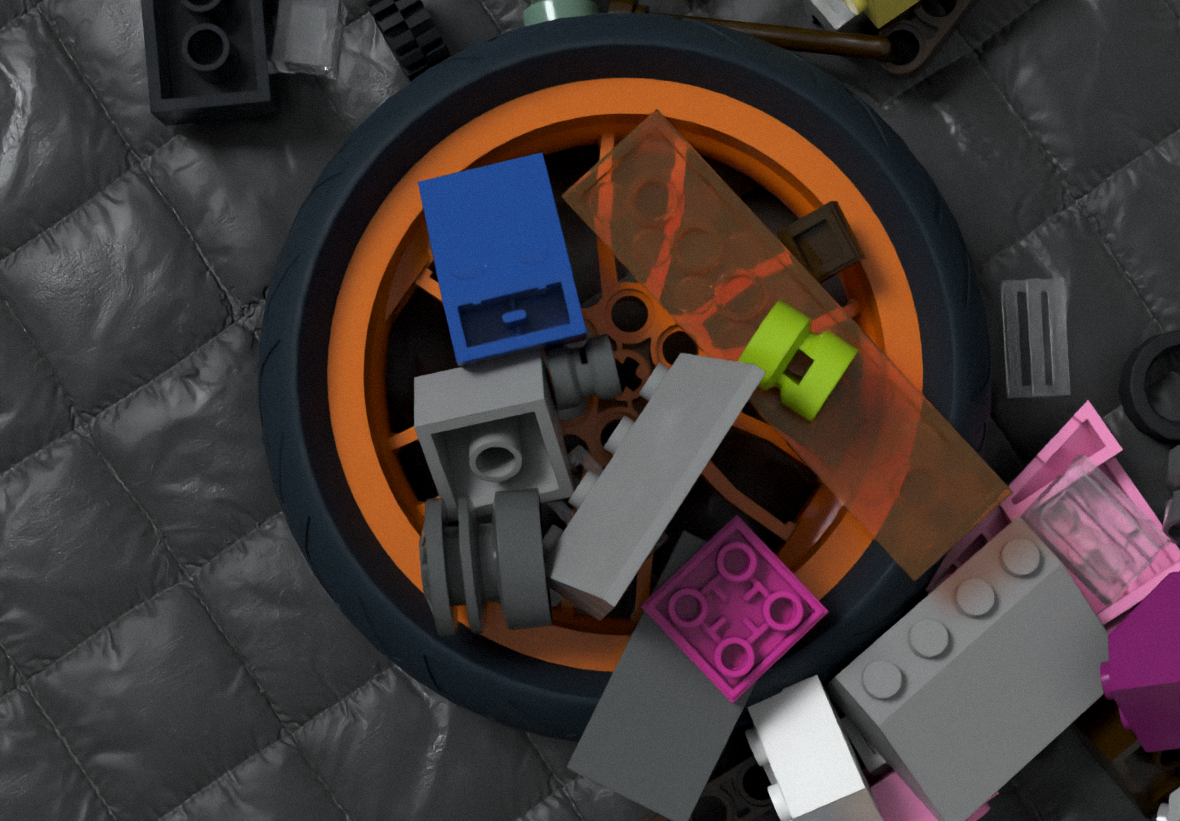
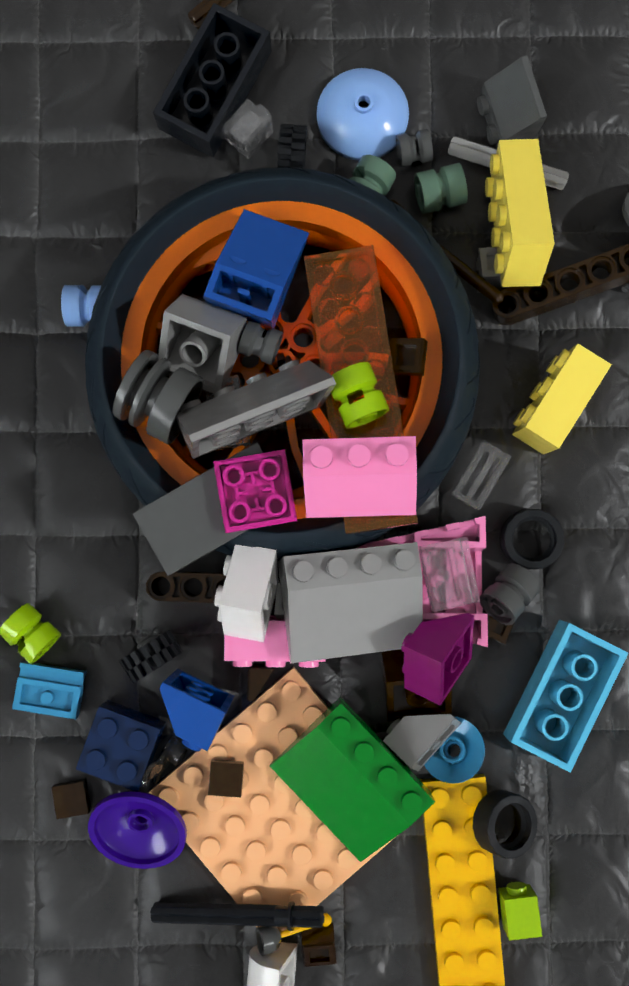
camera: 30 degrees right, 0 degrees up
(236, 484) = (78, 304): none -> light blue wheel
(884, 482) = (360, 477): none -> bright pink slope
(1082, 142) = (560, 398): none -> light yellow brick

